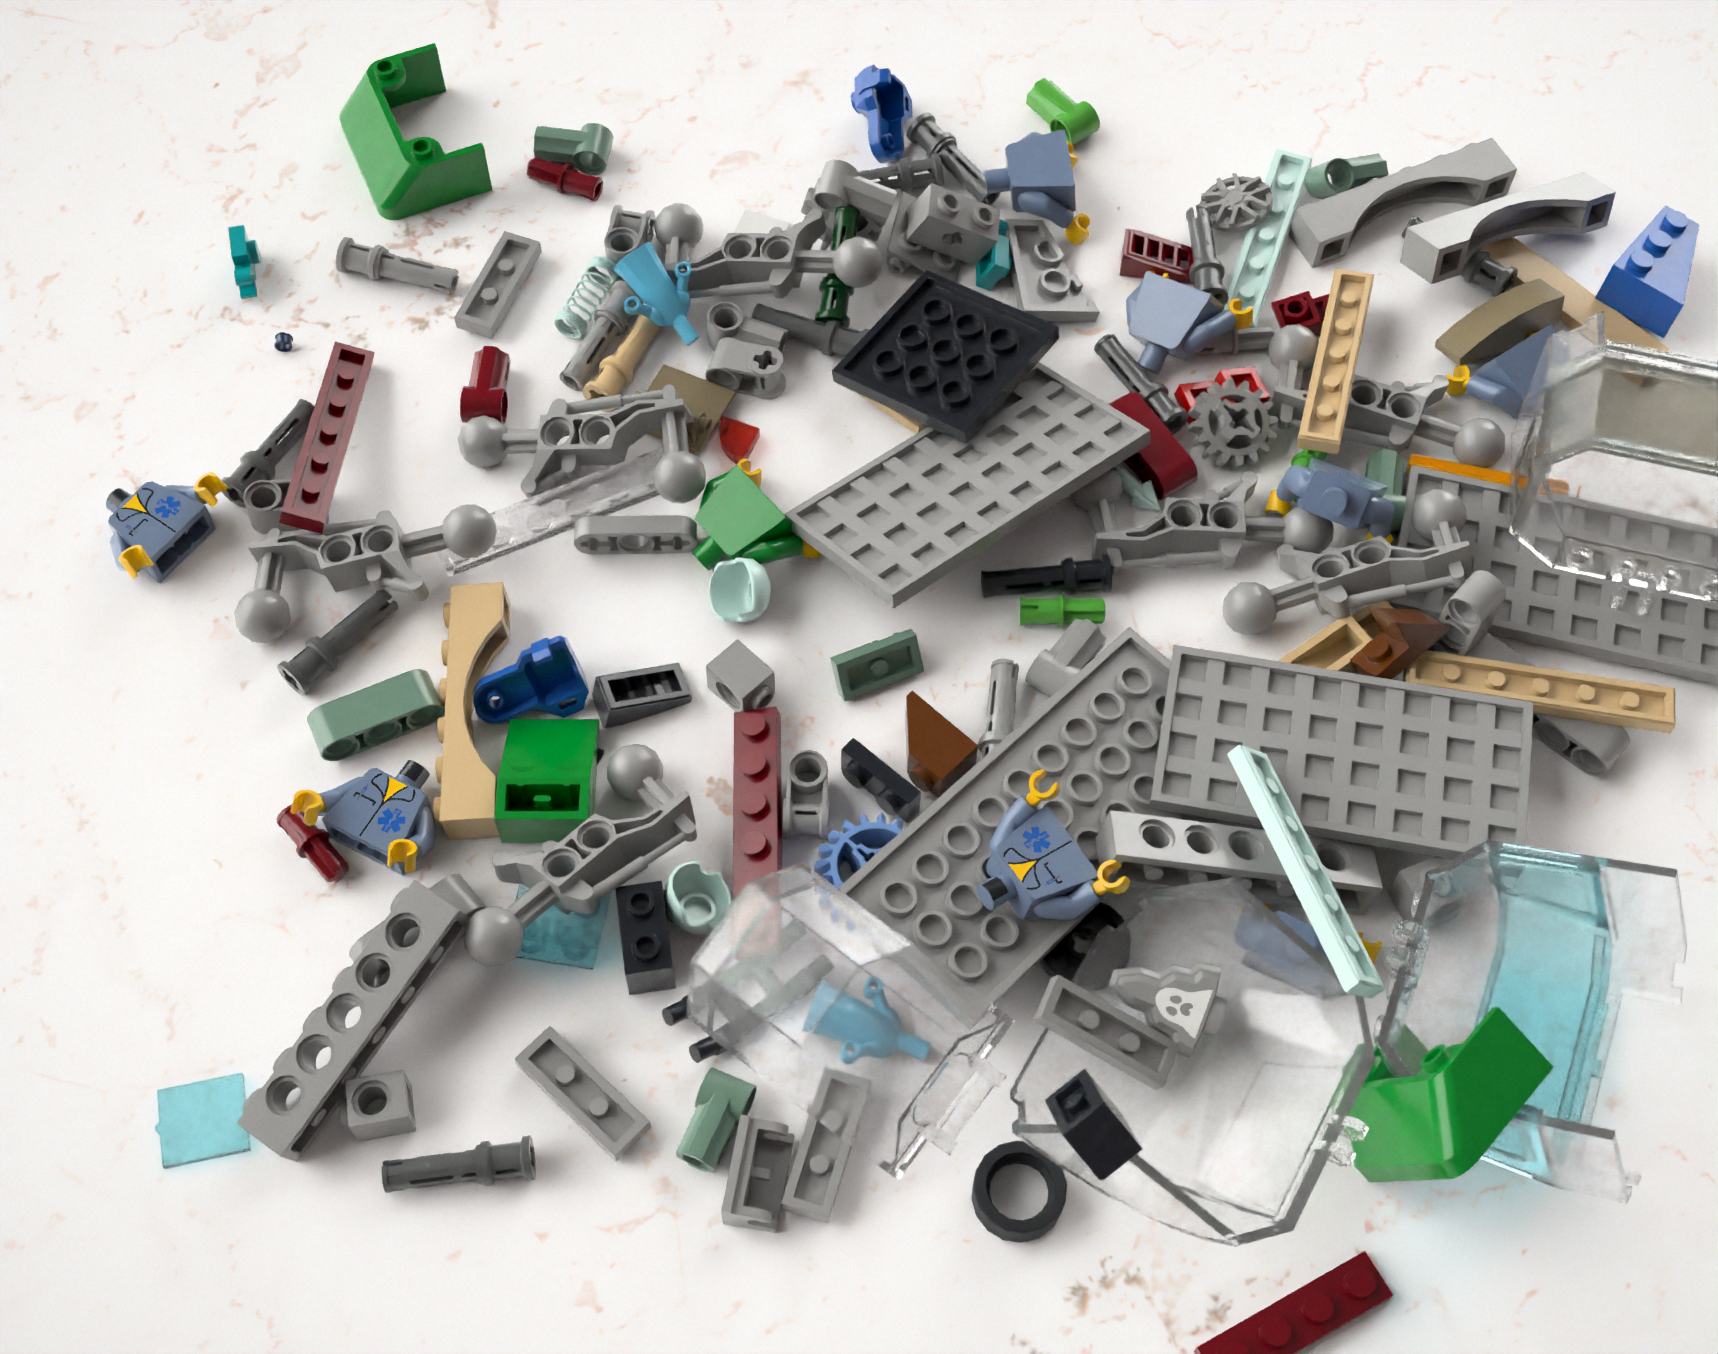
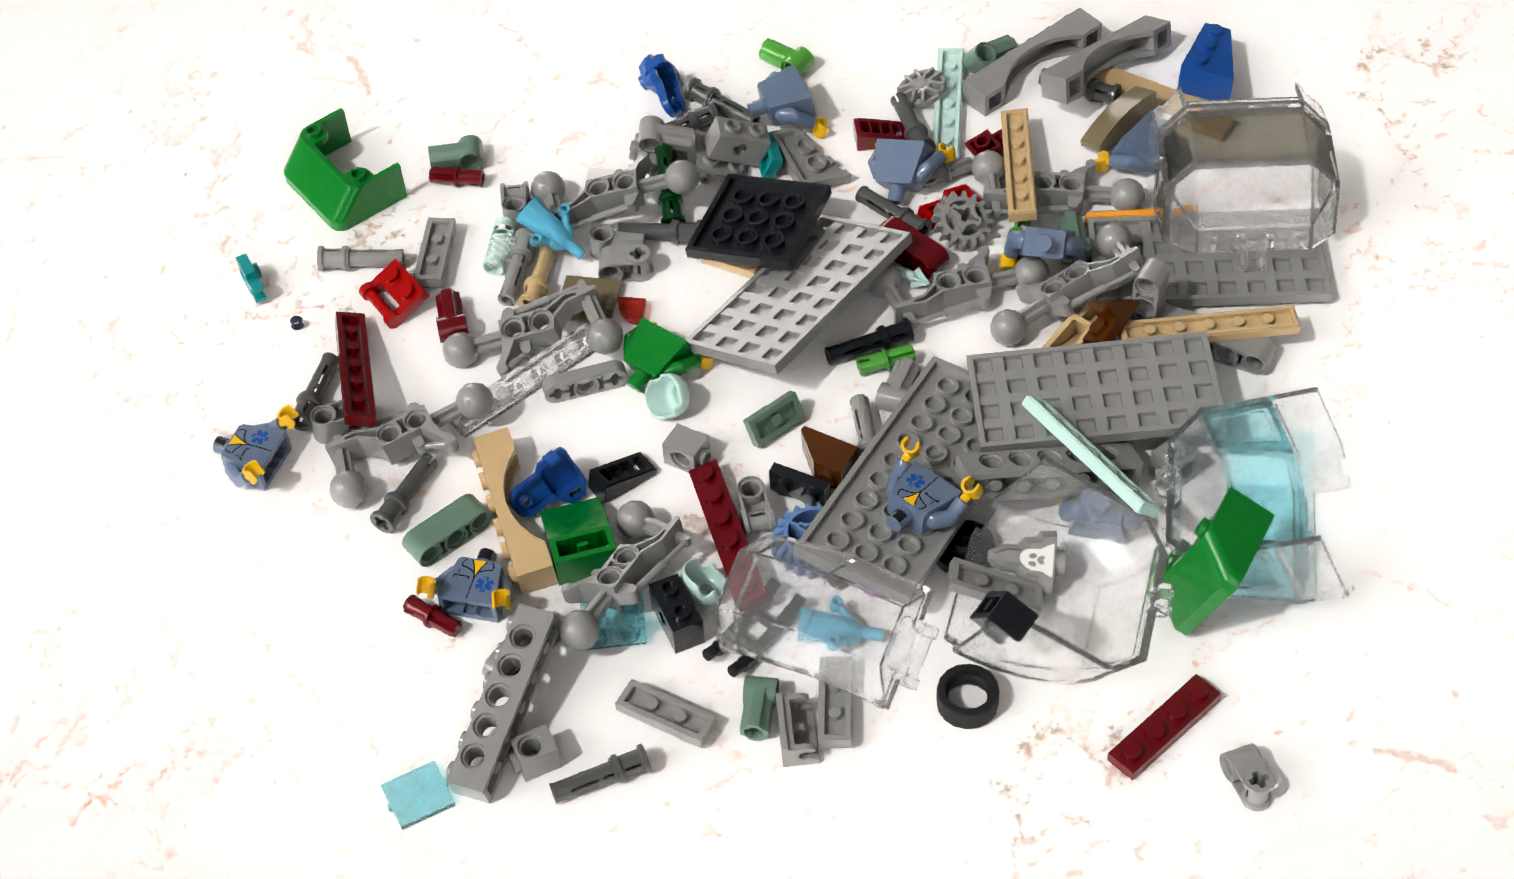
camera: 10 degrees left, 10 degrees down
(434, 327) = (401, 287): none -> red plate

